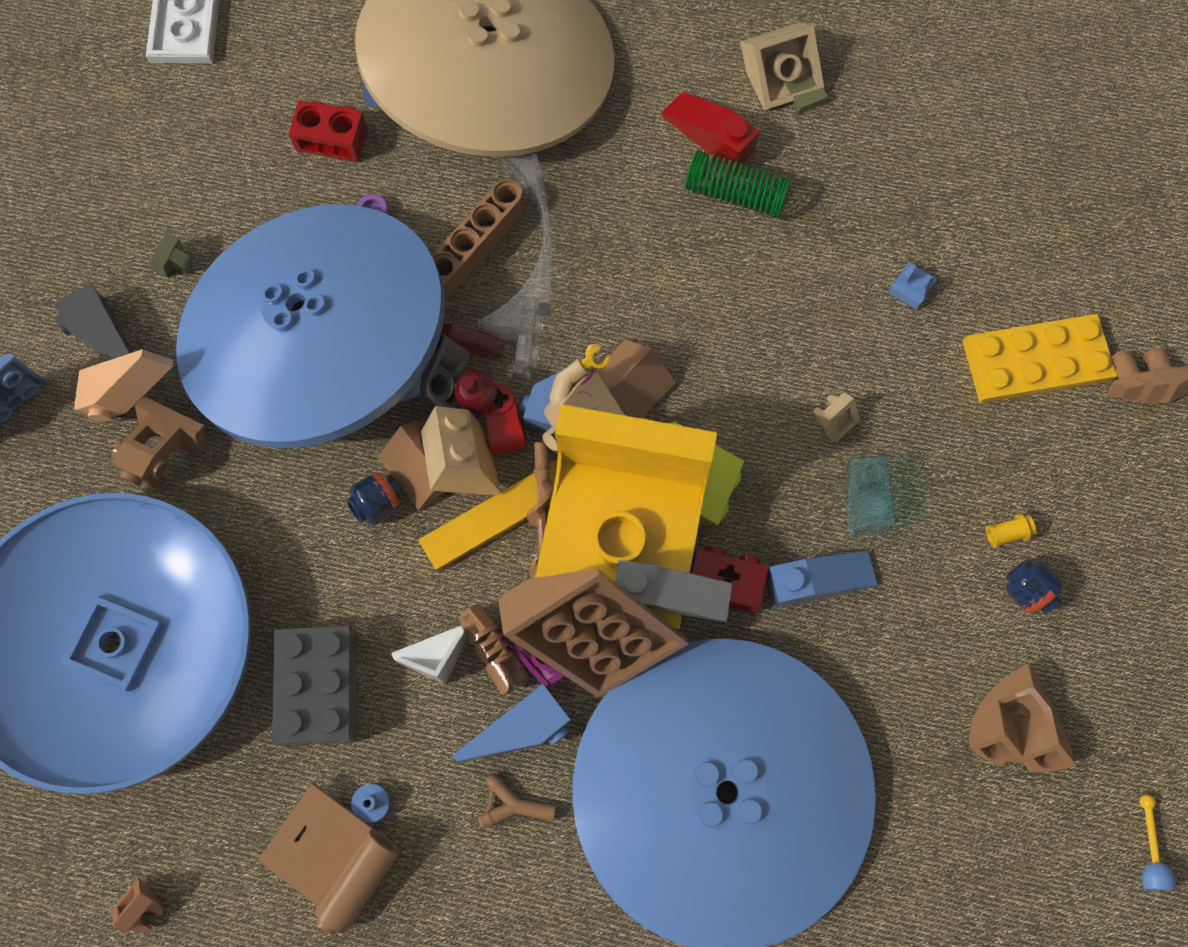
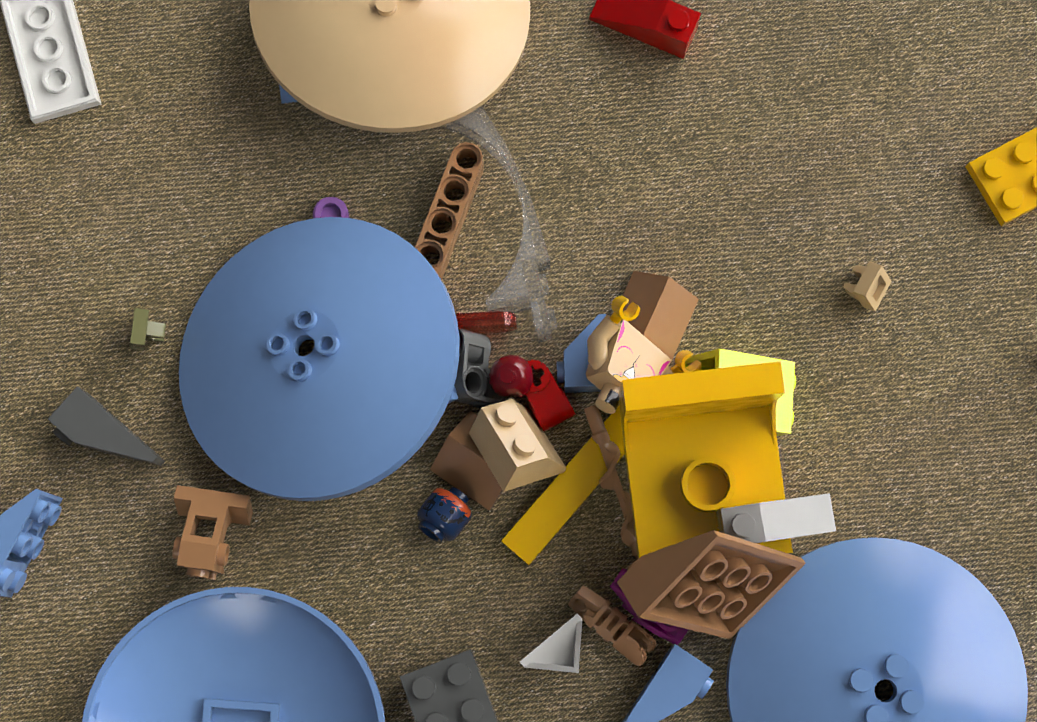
camera: 15 degrees left, 5 degrees up
(118, 384) = (147, 483): light nougat slope -> none
(326, 137) = (255, 154): red brick -> none
(746, 572) = (836, 478): red brick -> none
(774, 202) = (738, 79): green piece -> none
(819, 578) = (902, 454): medium blue slope -> none
(868, 497) = (925, 358): clear light blue slope -> none
(912, 285) = (900, 125): medium blue tile -> none

